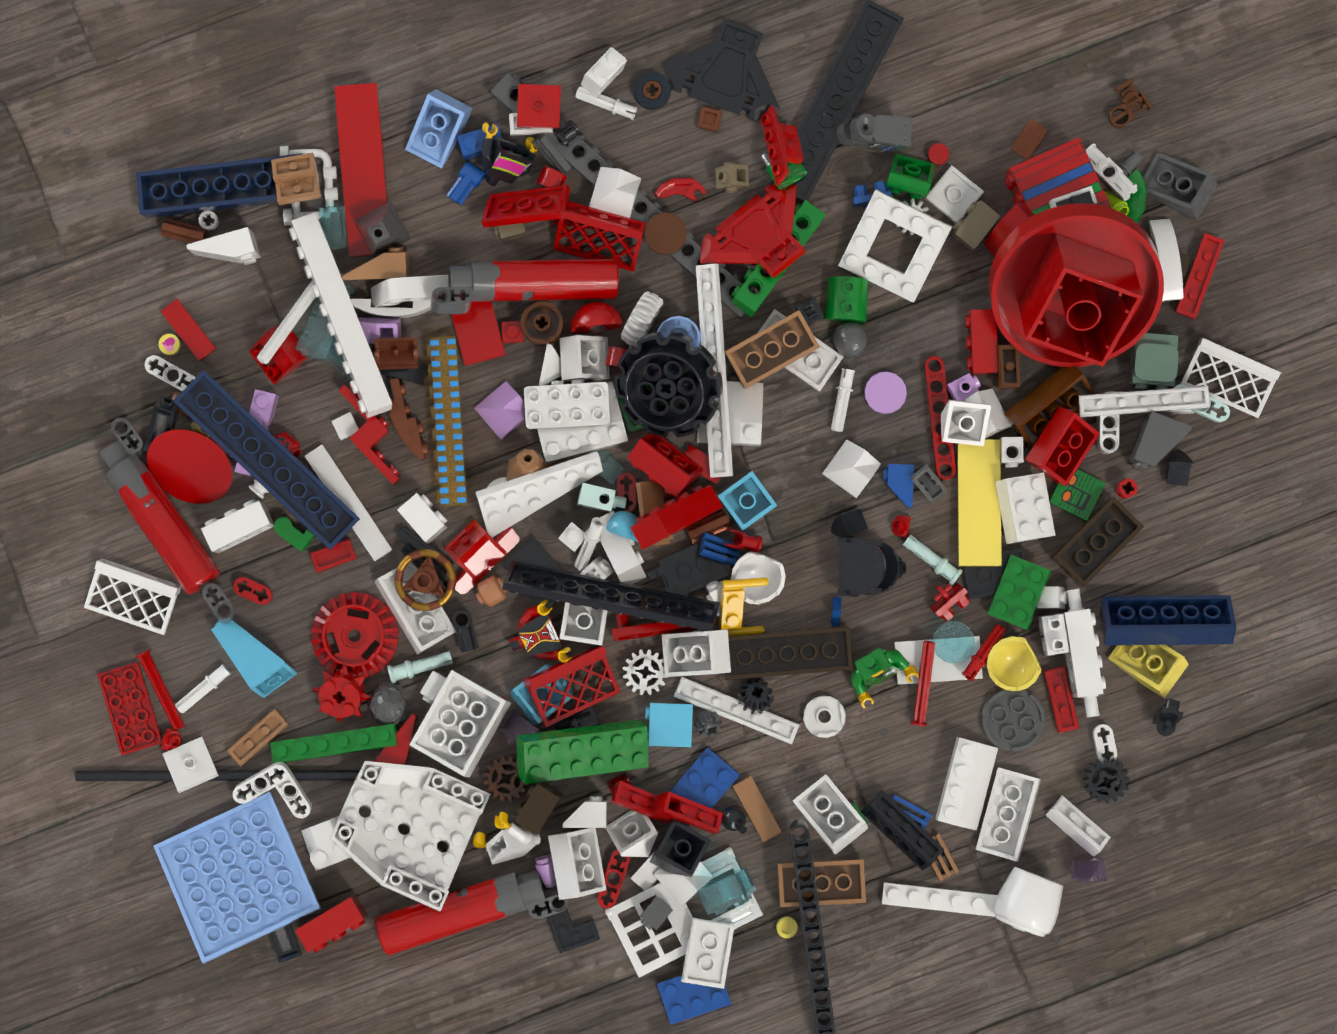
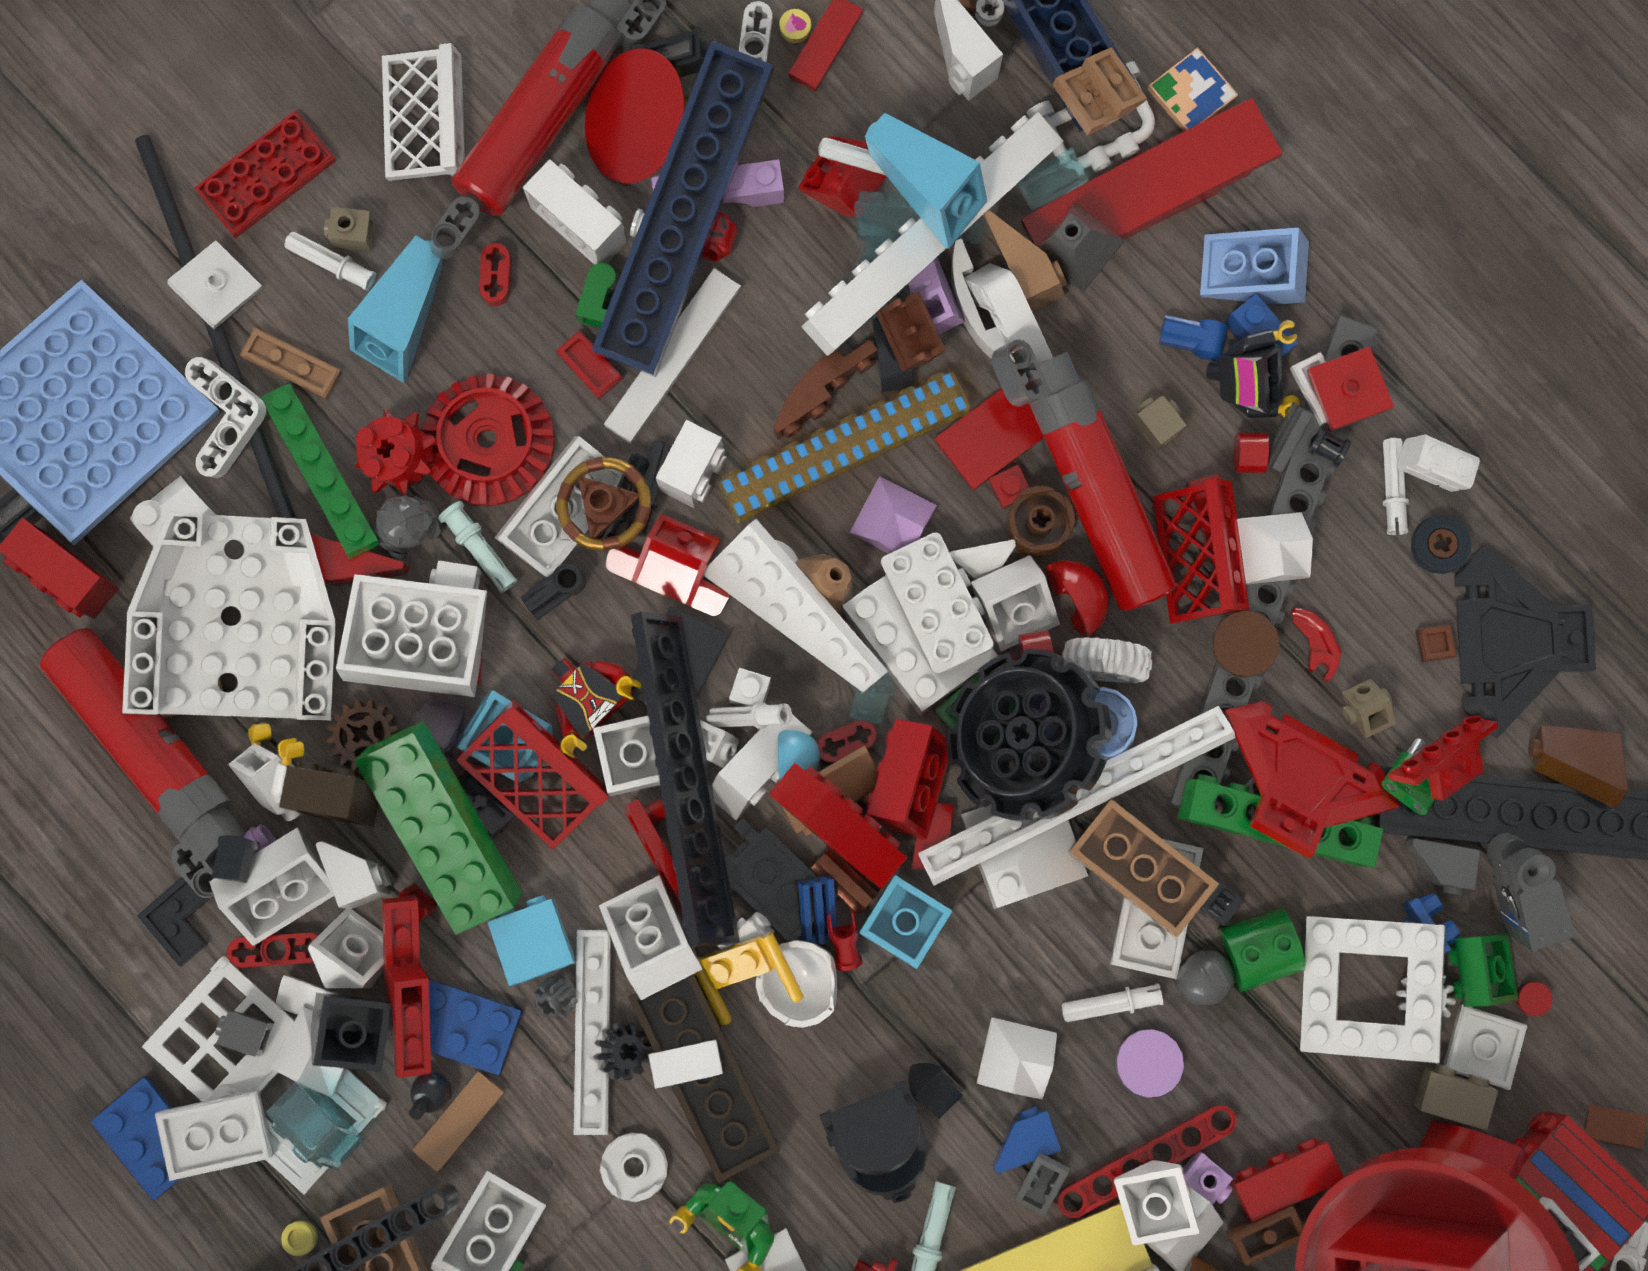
camera: 65 degrees right, 5 degrees down
(161, 690) = (306, 204): red axle -> none
(171, 739) = (241, 245): red plate -> none
(188, 668) = (350, 229): none -> dark tan brick
(311, 302) = (932, 177): none -> medium azure slope
(312, 118) = (1192, 91): none -> tile
(345, 426) = (779, 308): white tile -> none
(369, 436) = (776, 345): red bracket -> none
(491, 591) = (622, 602): nougat head -> none
(526, 206) = (1199, 429): red tile -> none
(552, 878) = (234, 858): none -> black tile
(590, 495) = (821, 689): light aqua torso -> none
(647, 662) = (581, 877): white gear -> none
(777, 661) = (685, 1064): none -> white tile
(813, 66) = (1582, 760): none -> reddish brown slope
(836, 611) = (796, 1121): blue tile -> none
(841, 171) = (1446, 865): none -> dark grey slope
(901, 526) = (962, 1167): red plate -> none

